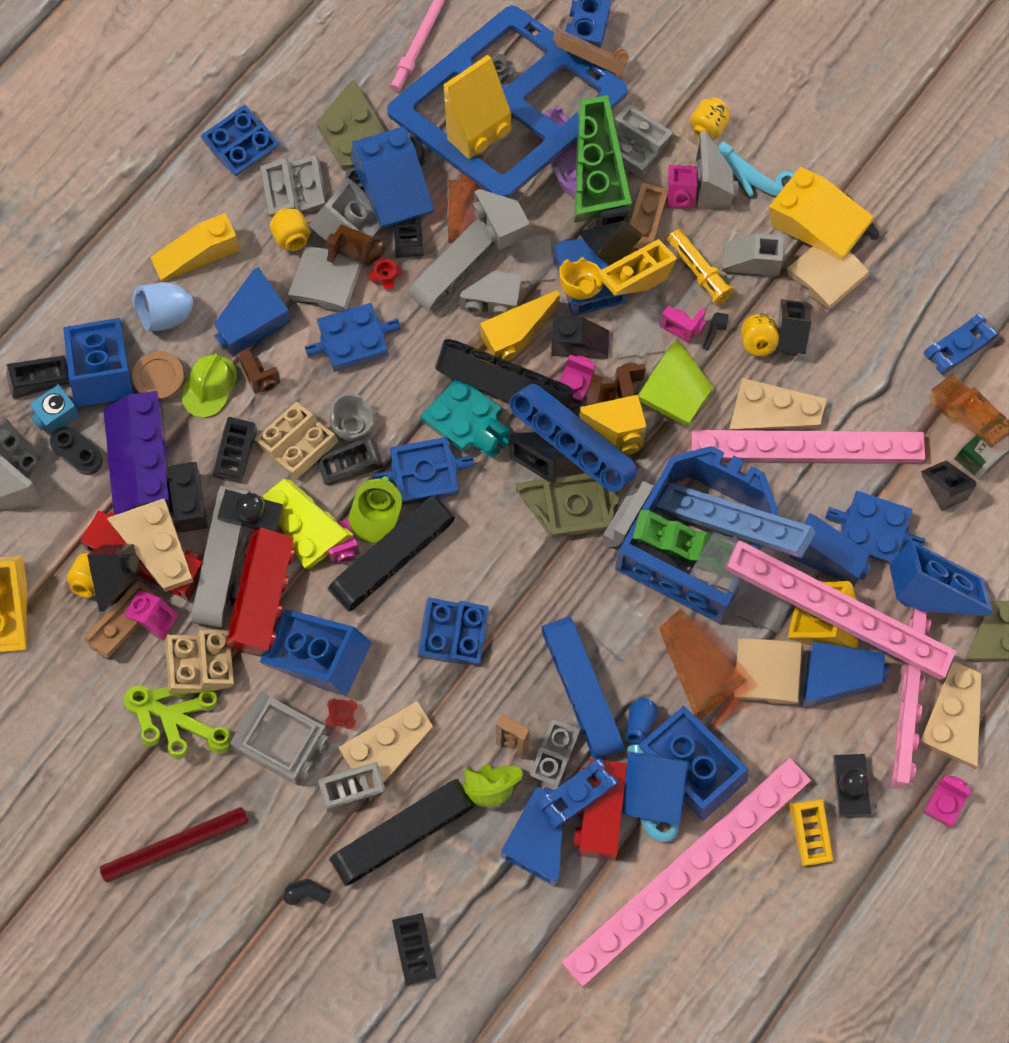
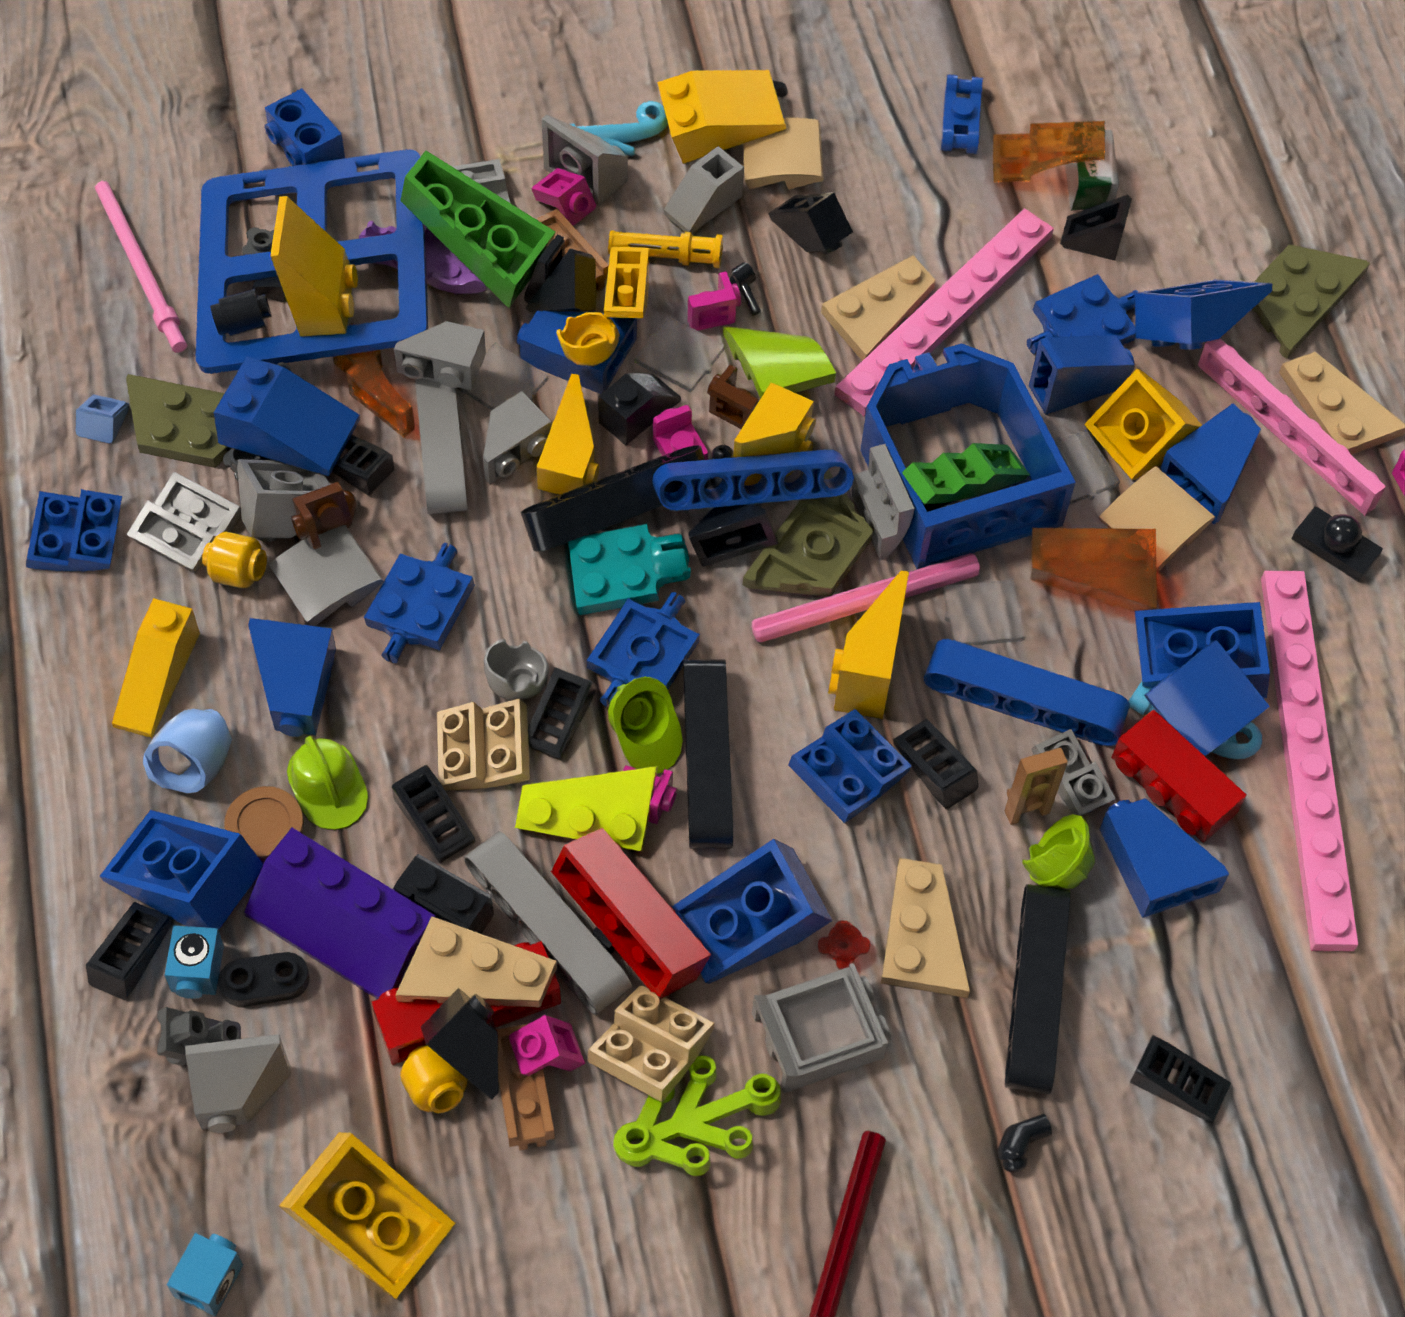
camera: 50 degrees left, 10 degrees down
(249, 511) = (529, 844): black tile -> none
(256, 376) = (363, 724): reddish brown bracket -> none
(318, 91) = (100, 418): none -> medium blue slope
(326, 783) = (927, 1030): light grey slope -> none
(385, 265) = (375, 507): red plate -> none
(428, 98) = (241, 313): none -> black brick
(492, 693) = (951, 784): none -> black slope
(523, 586) = (865, 665): none -> yellow slope
(568, 557) = (861, 598): none -> bright pink axle
(577, 793) = (1151, 776): blue plate -> none
(601, 389) = (717, 426): reddish brown bracket -> none
(613, 62) = (373, 141): medium nougat hinge -> none
(641, 718) = (1110, 664): blue cone -> none
(710, 117) = (520, 117): yellow head -> none
(712, 563) = (1022, 449): clear piece -> none
(736, 520) = (997, 399): medium blue plate -> none
(760, 335) = (795, 251): yellow head -> none
(800, 833) = (1338, 616): yellow slope -> none
(840, 610) = (1162, 394): bright pink plate -> none

